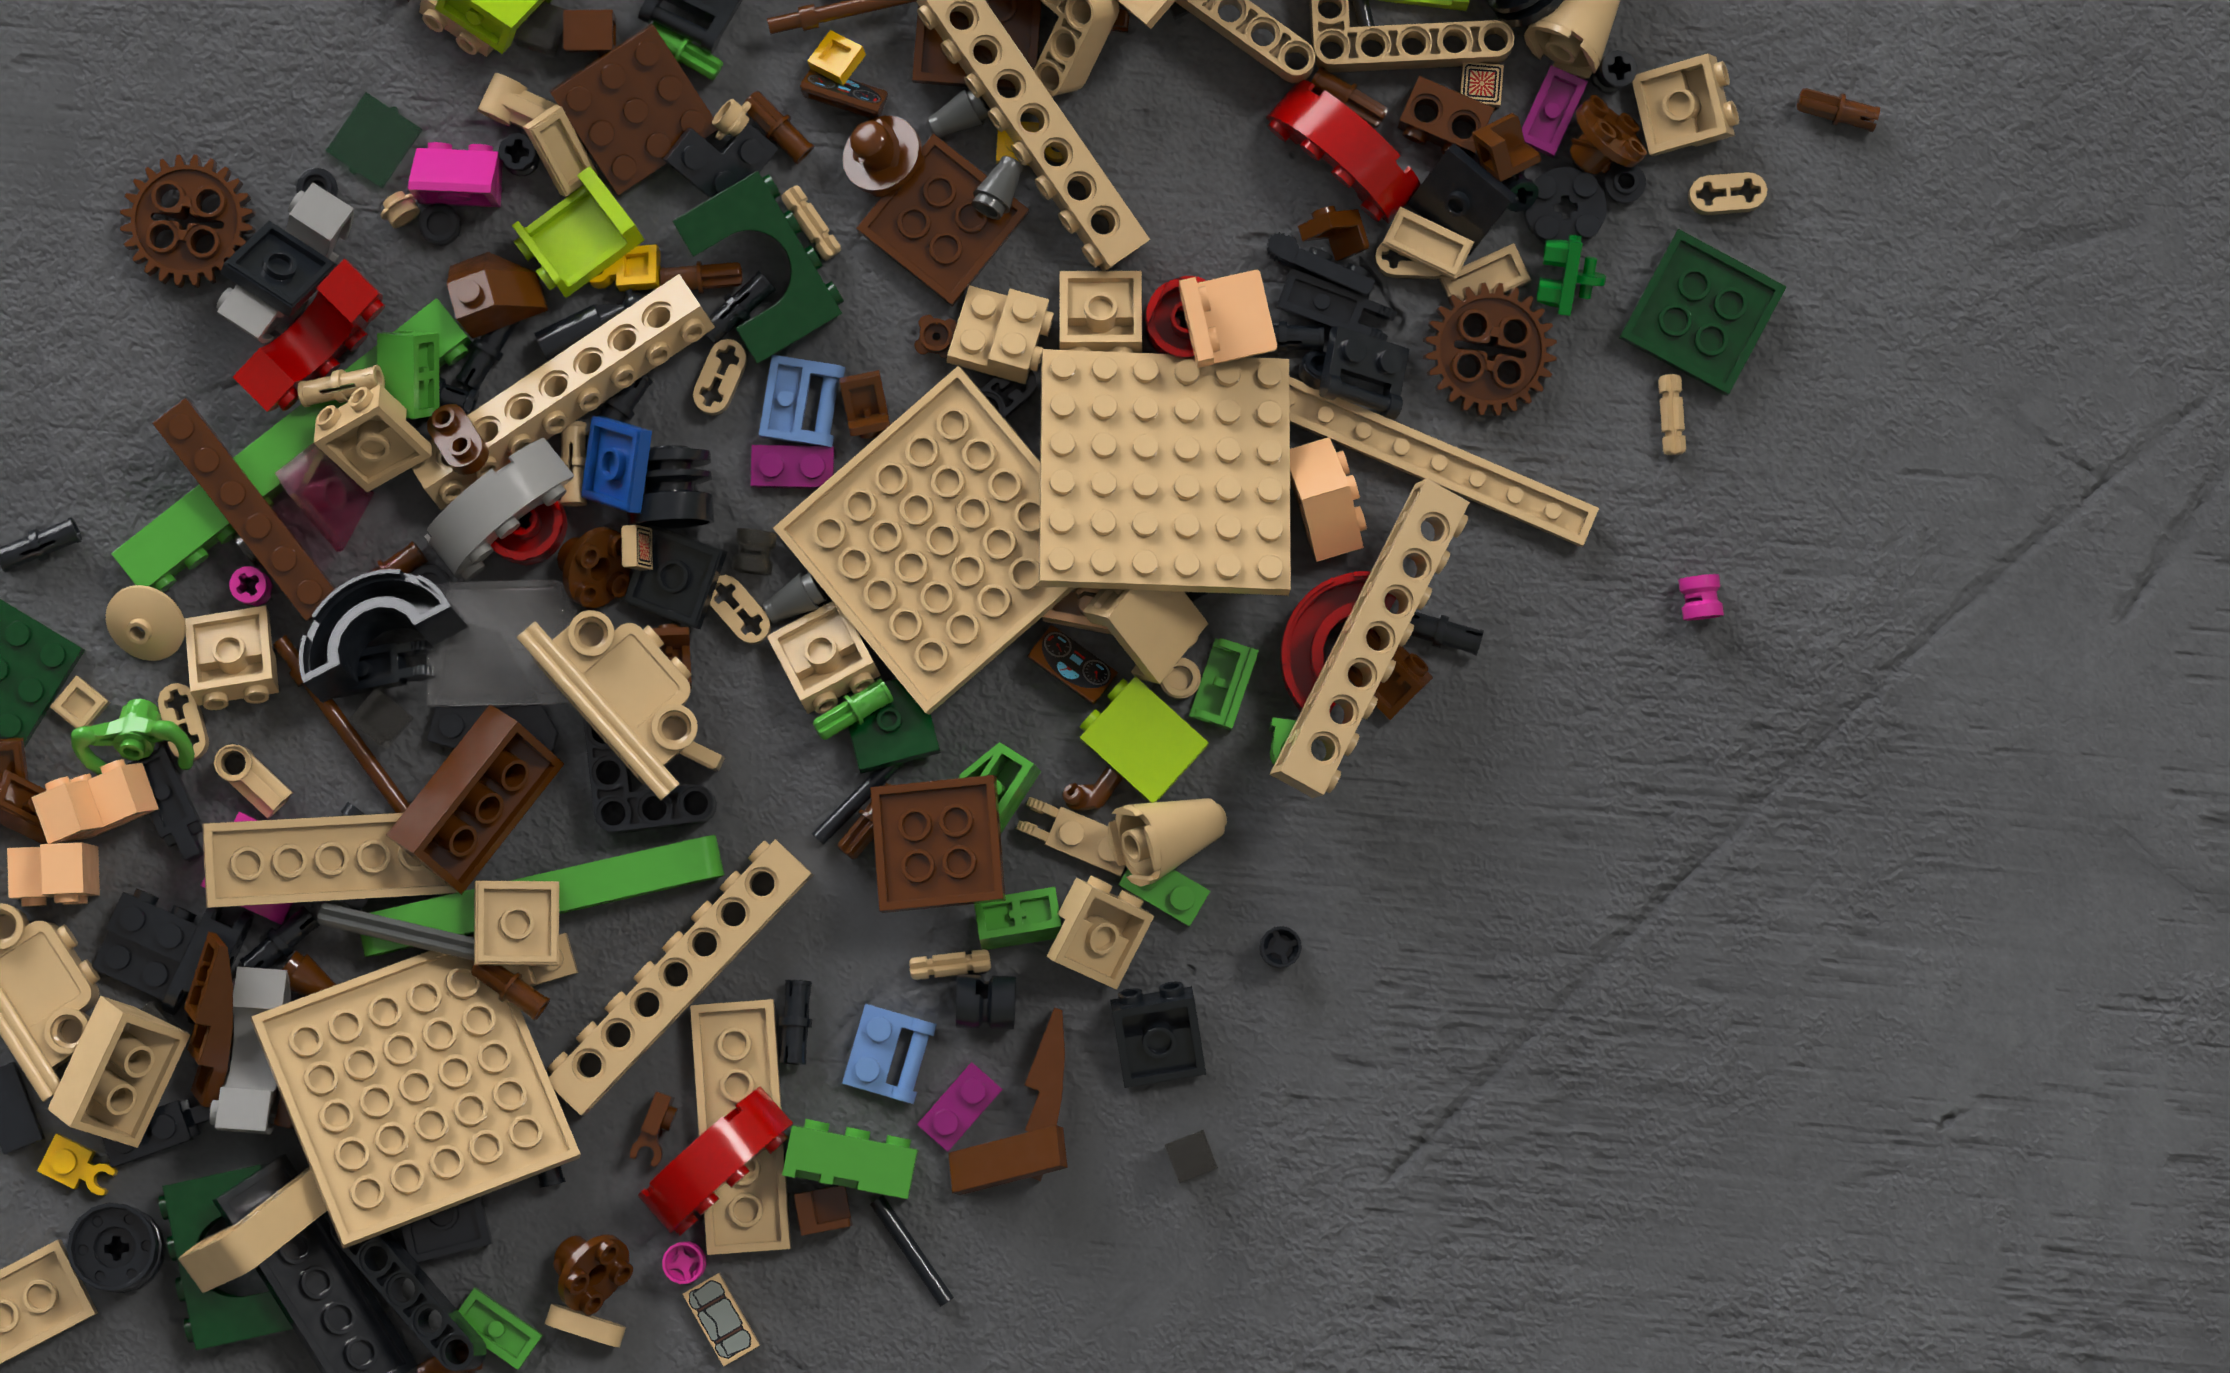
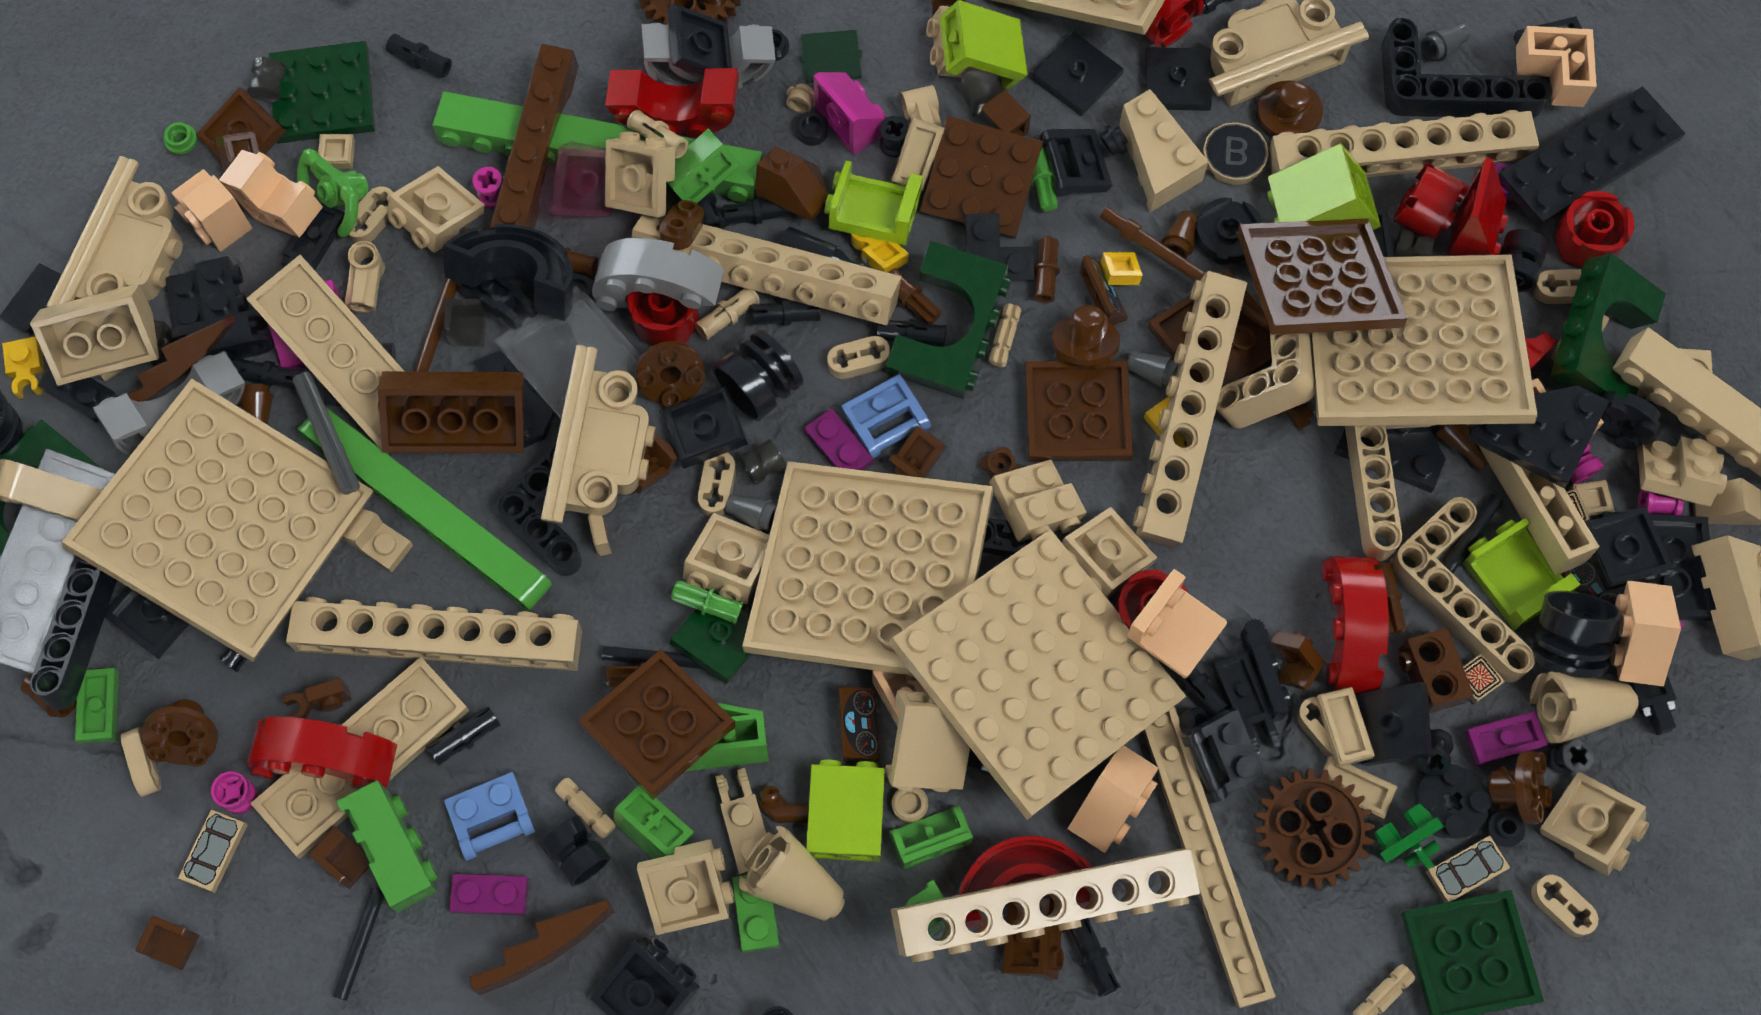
camera: 50 degrees right, 15 degrees down
(154, 614) = (416, 145): tan dish -> none
(512, 989) = (341, 529): reddish brown axle -> none
(516, 923) = (387, 498): tan tile -> none
(616, 464) = (745, 327): blue tile -> none
(636, 547) = (702, 385): tan tile -> none
(731, 118) = (1026, 236): tan plate -> none
(997, 190) = (1127, 423): dark grey cone -> none
(1007, 1160) = (472, 955): reddish brown tile -> none
(1503, 148) = (1455, 721): reddish brown panel -> none
(1631, 247) = (1467, 869): none -> tile
(1838, 109) = (1692, 933): reddish brown axle -> none

